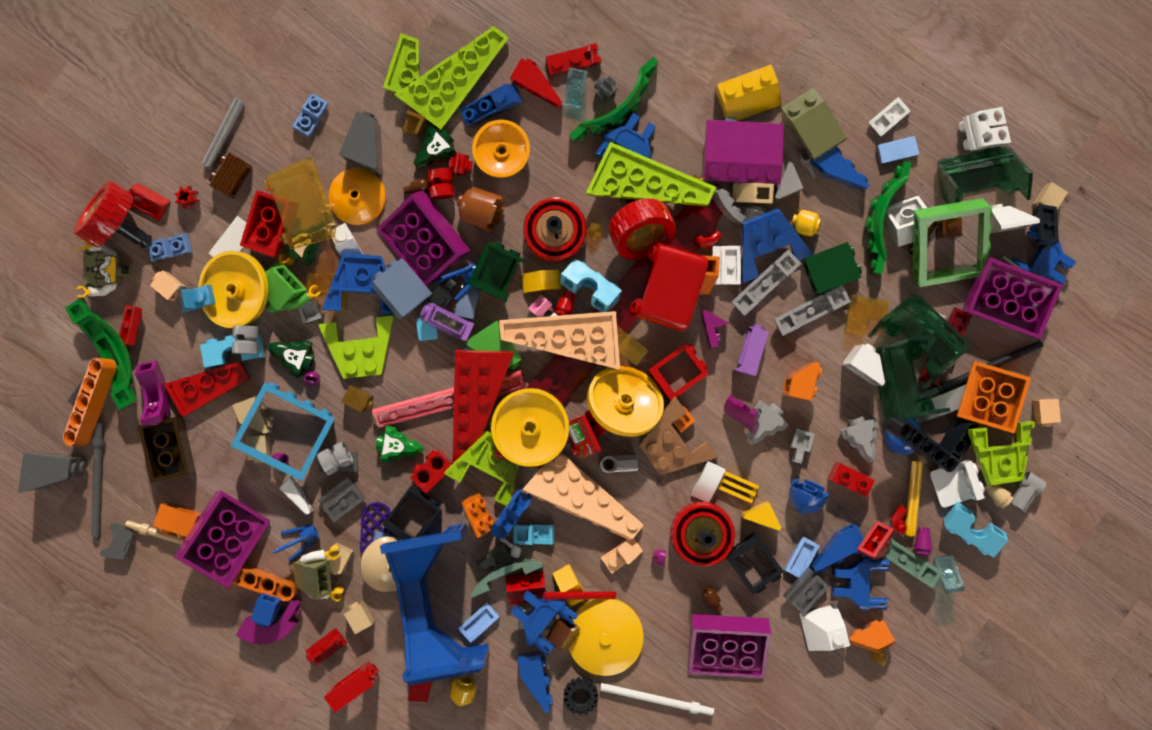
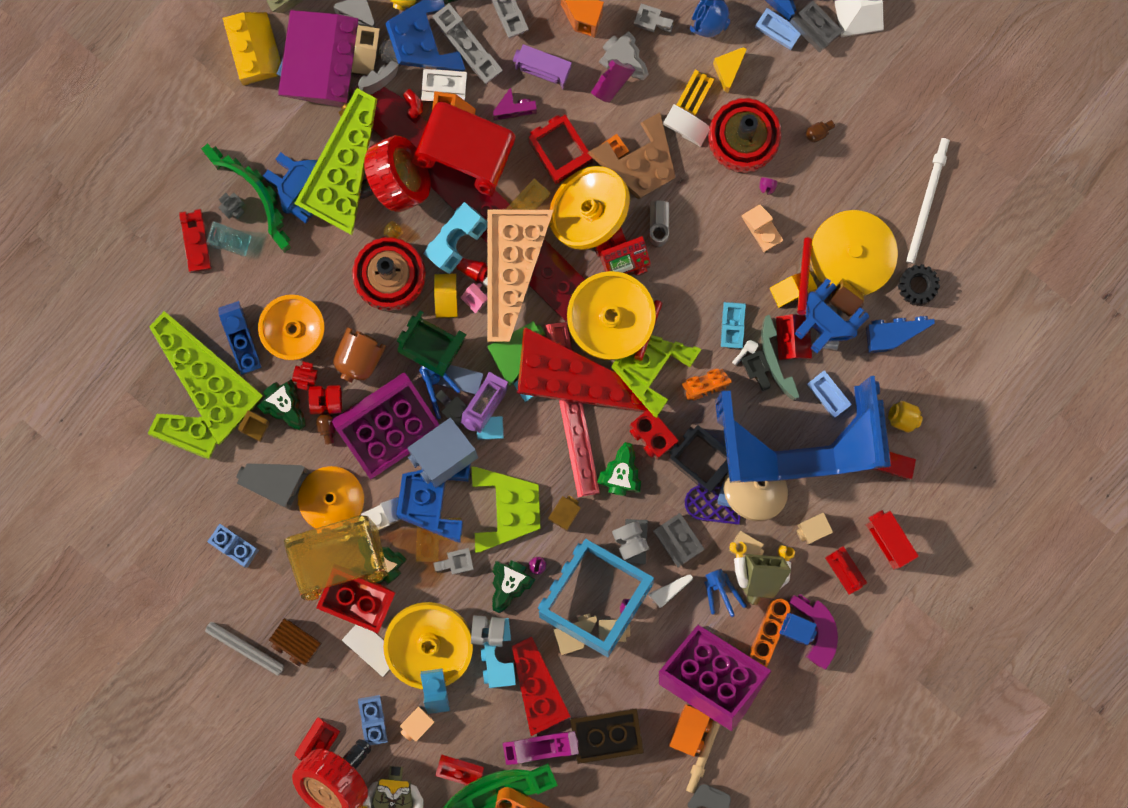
camera: 85 degrees left, 5 degrees down
(181, 196) = (318, 688): red gear -> none
(285, 289) = (433, 584): bright green torso -> none
(511, 514) = (708, 343): blue connector -> none
(532, 80) = (215, 287): red slope -> none
(576, 493) = (692, 268): light nougat wing -> none
(728, 646) = (872, 116): magenta slope -> none
(742, 547) = (763, 93): black window -> none

